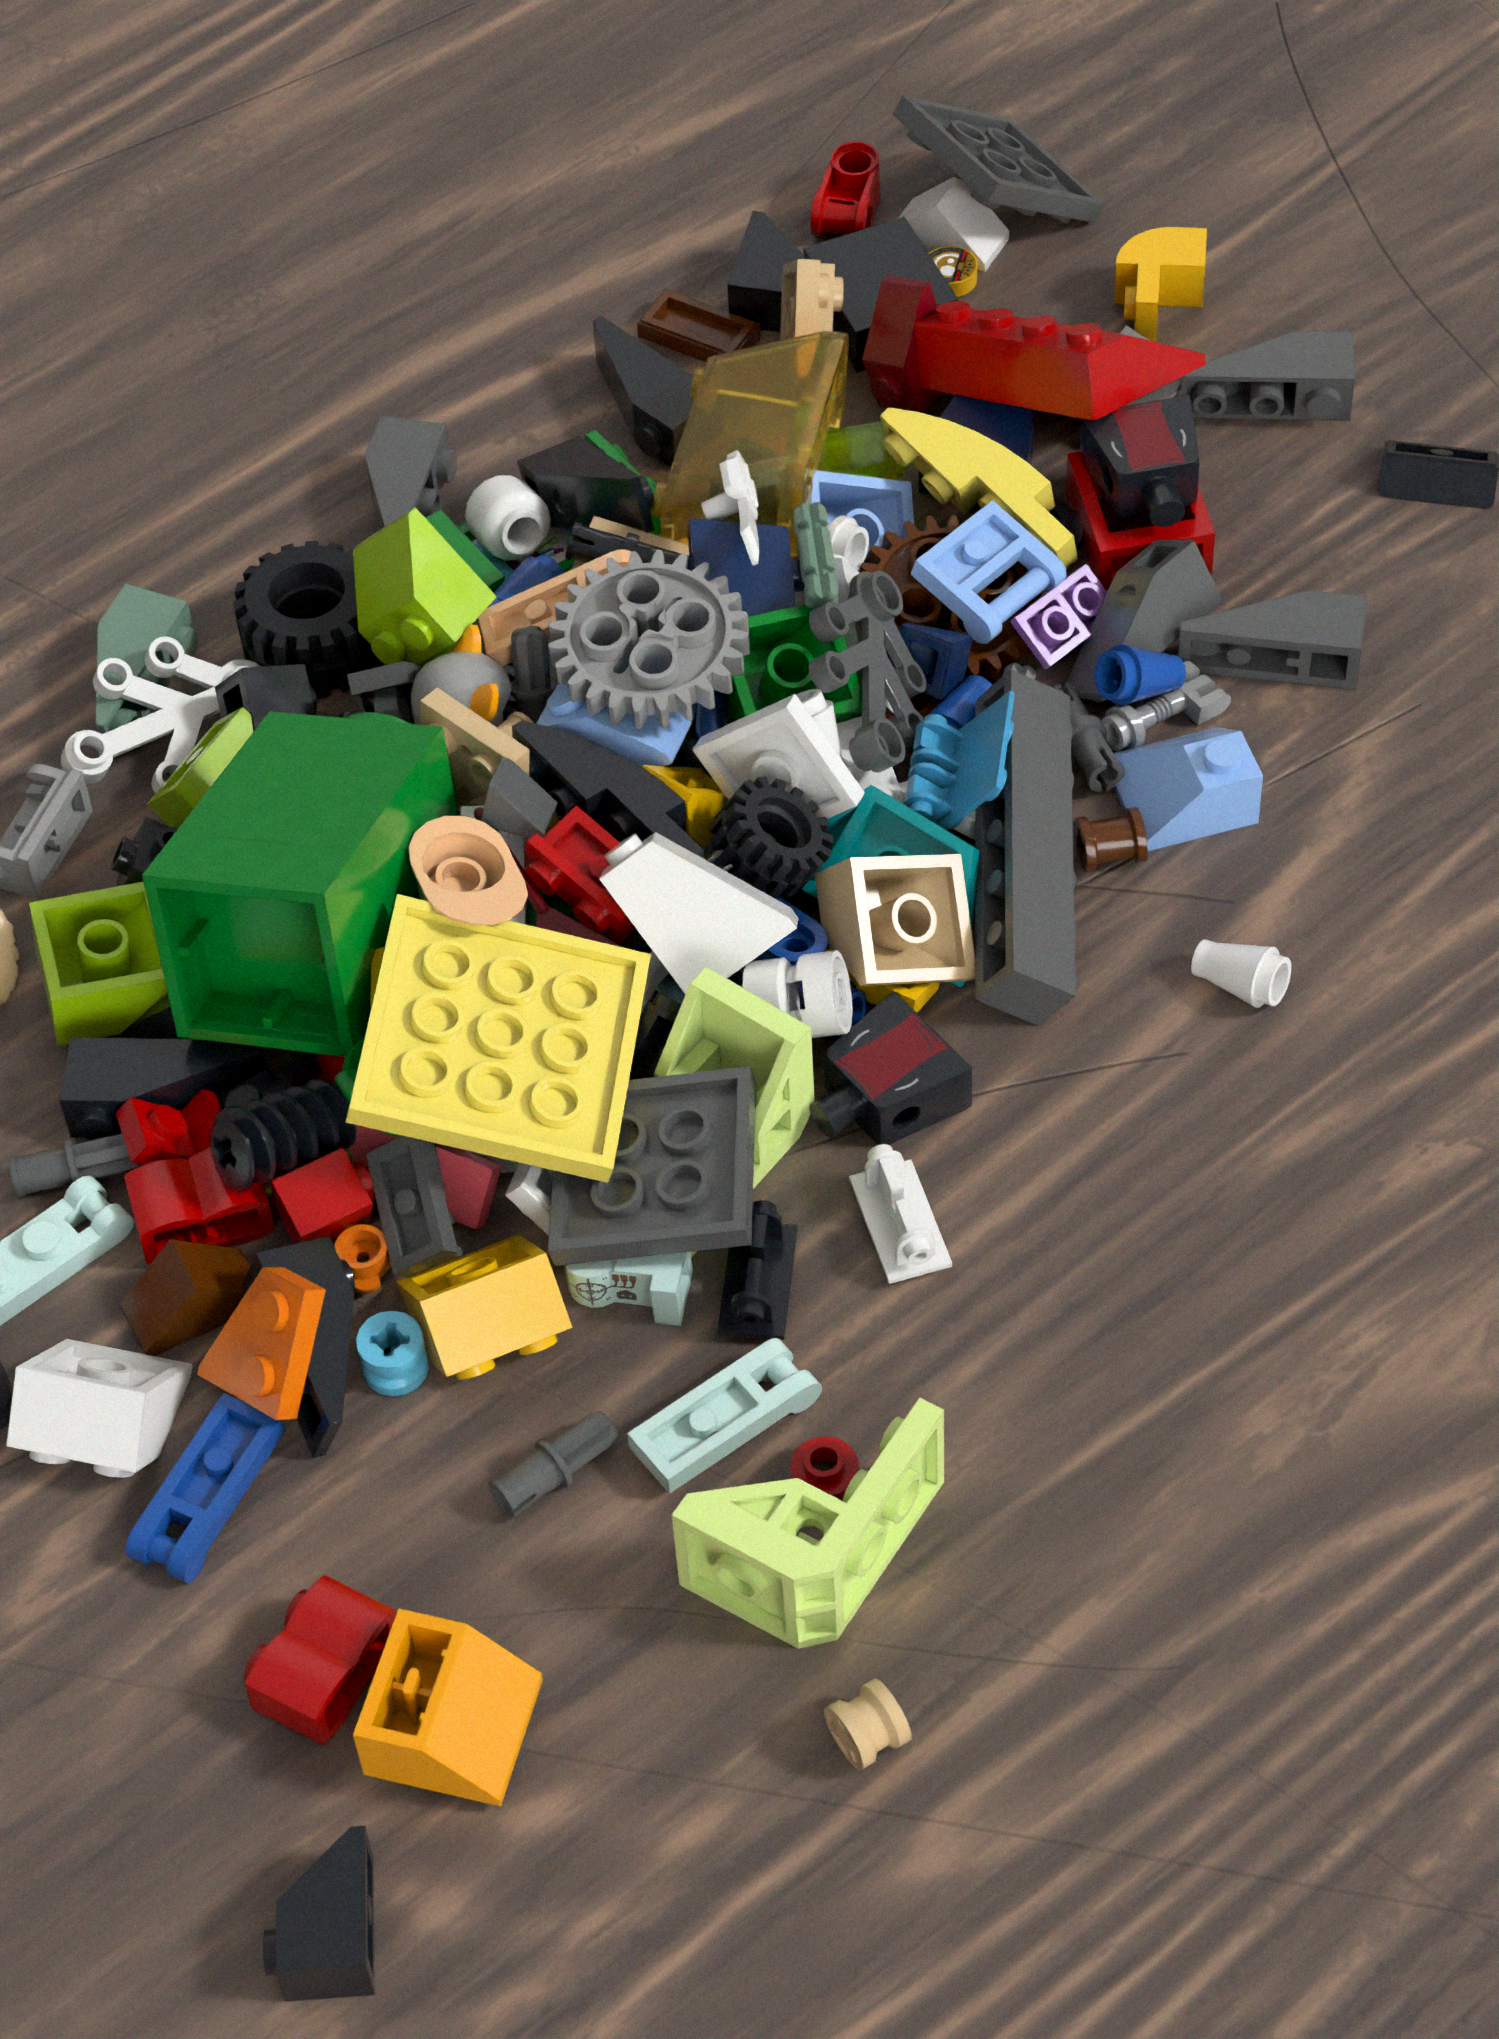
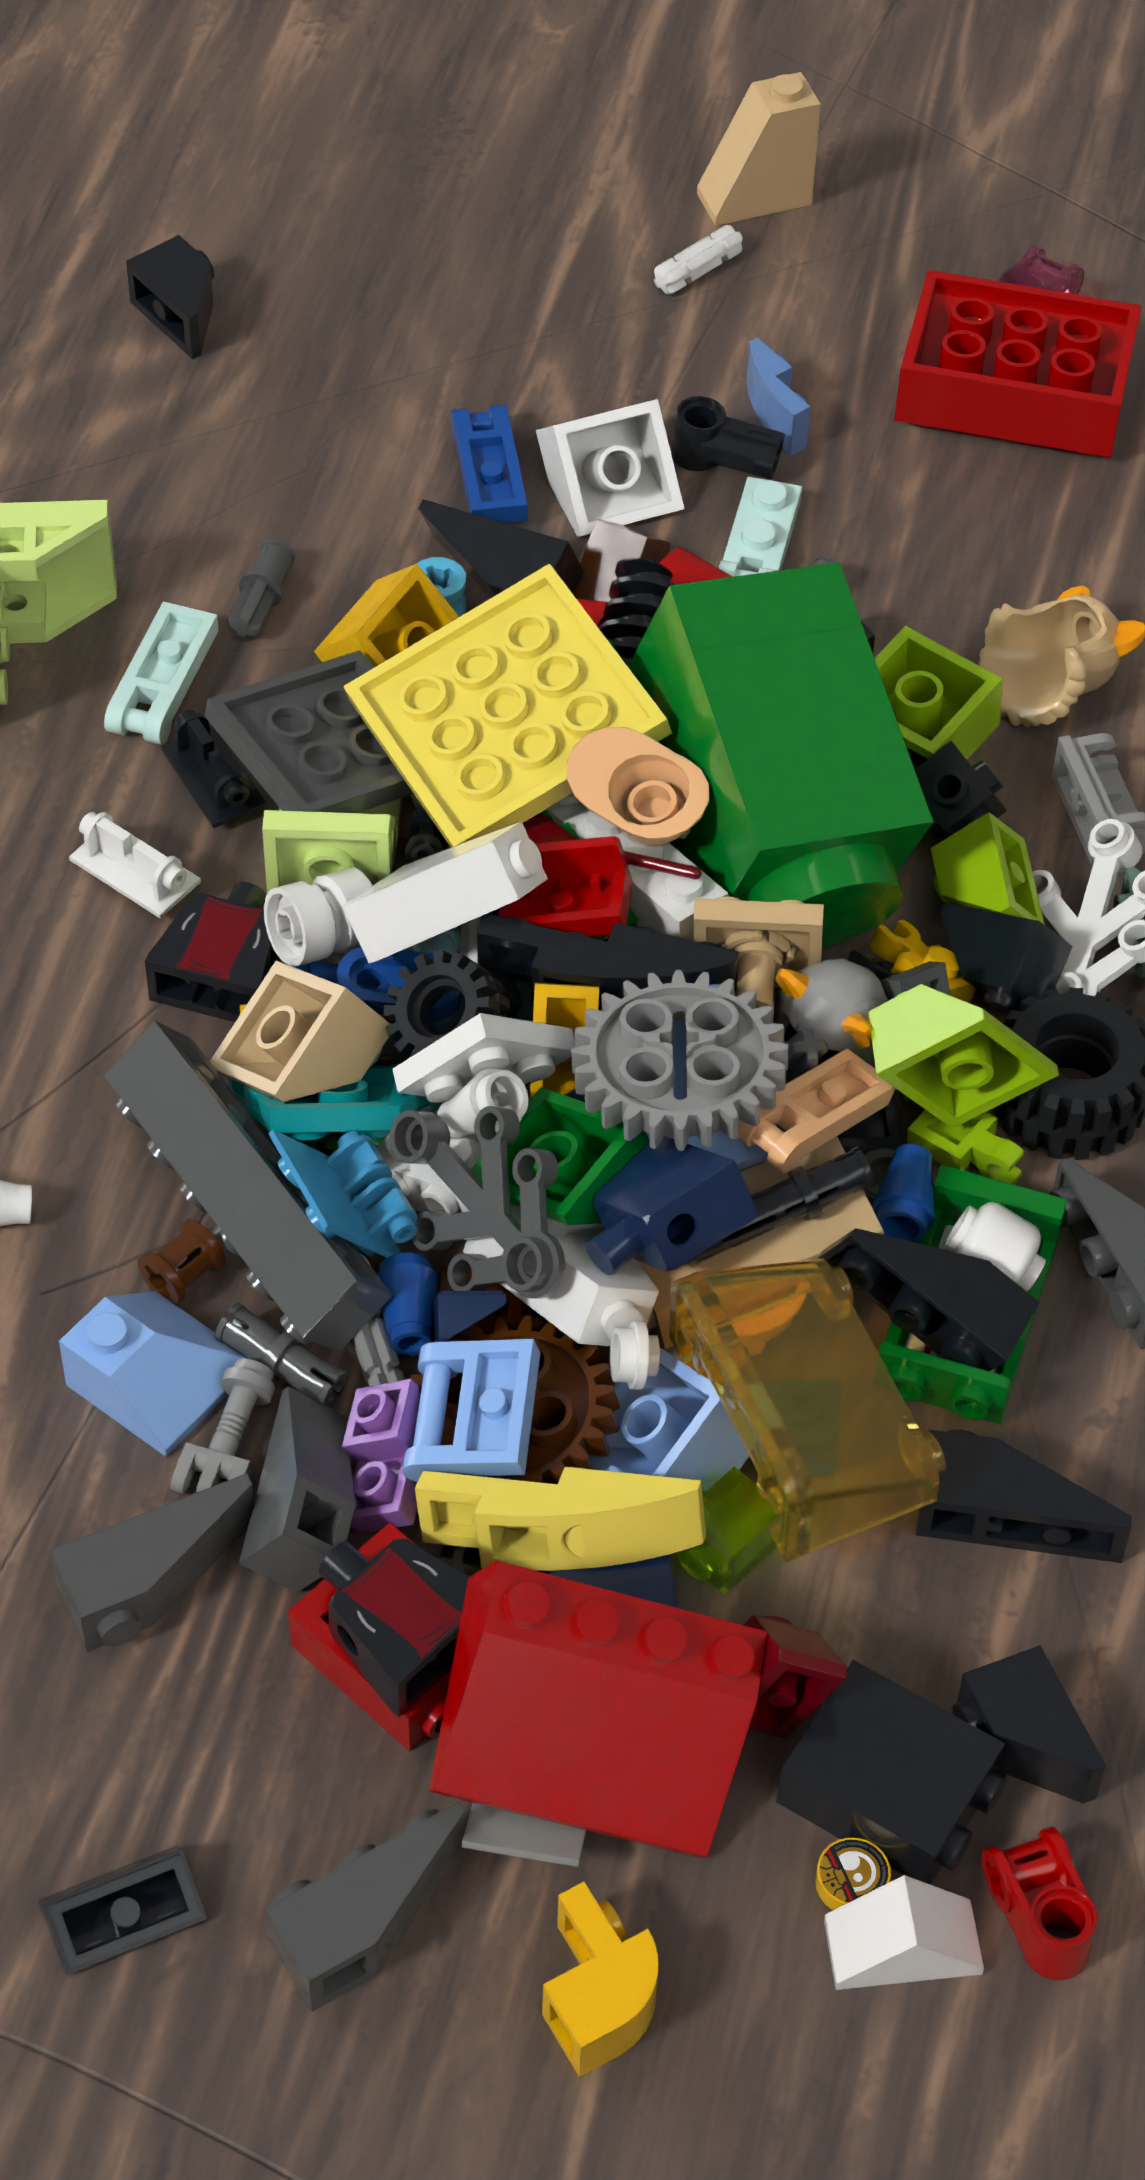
camera: 140 degrees right, 0 degrees up
(268, 1343) = (507, 505): orange wing -> none
(320, 1659) = (312, 408): red brick -> none
(446, 1710) = (200, 408): light orange slope -> none
(517, 802) = (663, 883): dark grey slope -> none
(695, 327) = (1074, 1633): reddish brown tile -> none
(738, 497) = (710, 1208): white piece -> none
(809, 297) = (901, 1613): tan plate -> none
(815, 555) = (601, 1223): sand green axle -> none
(825, 1450) = (61, 679): red plate -> none
(997, 161) = (897, 2007): dark grey plate -> none
(1133, 674) = (254, 1404): blue cone -> none

